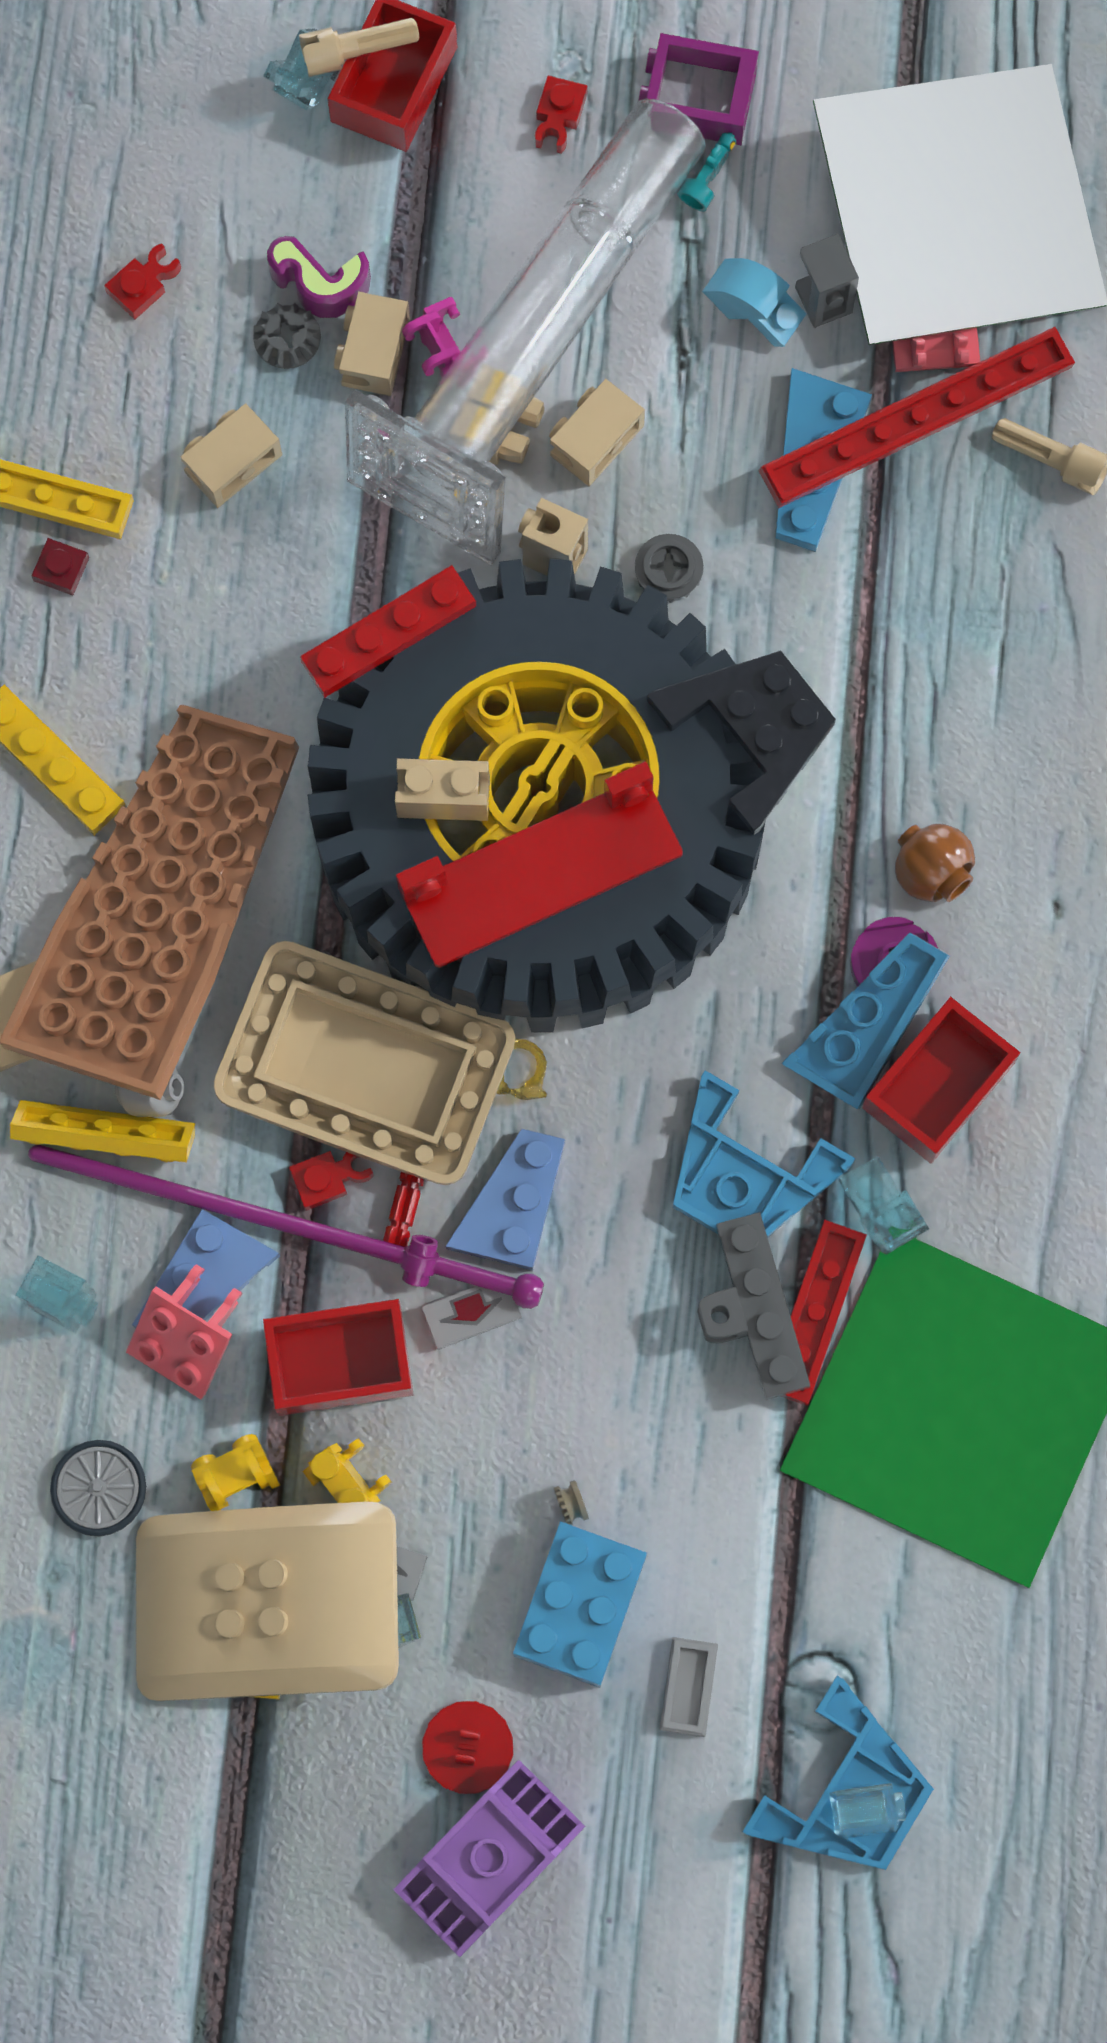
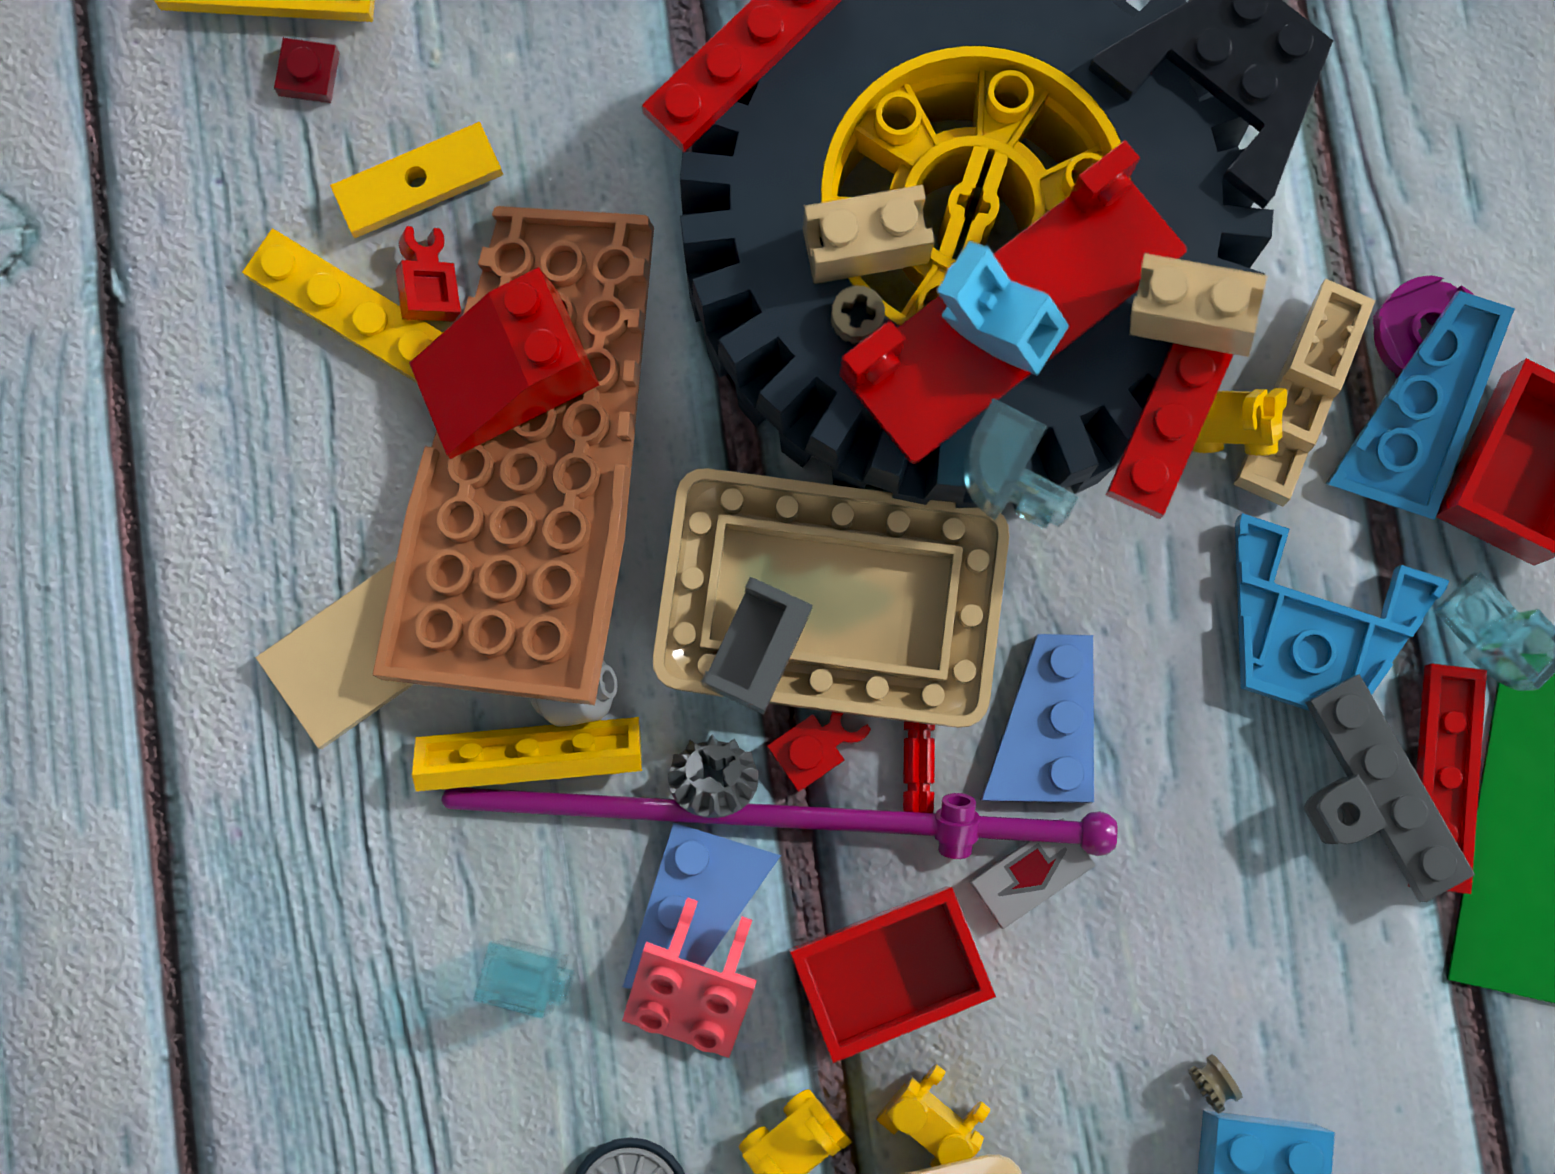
camera: 20 degrees left, 5 degrees up
(98, 677) = (385, 193): none -> yellow tile
(111, 753) = (424, 284): none -> red plate
(154, 827) = (502, 364): none -> red slope
(230, 1191) = (707, 796): none -> dark grey gear
(296, 1085) = (757, 645): none -> dark grey panel
(418, 834) = (846, 300): none -> dark tan bush
(497, 981) = (998, 474): none -> clear light blue brick
(522, 867) = (998, 313): none -> medium azure brick
(533, 1087) = (1036, 578): clear yellow piece -> none
(650, 963) = (1168, 428): none -> red plate
(670, 895) = (1197, 305): none -> tan brick
(715, 993) = (1244, 419): none -> yellow piece
(781, 987) = (1312, 380): none -> tan slope
(934, 861) = (1447, 200): dark orange plant -> none

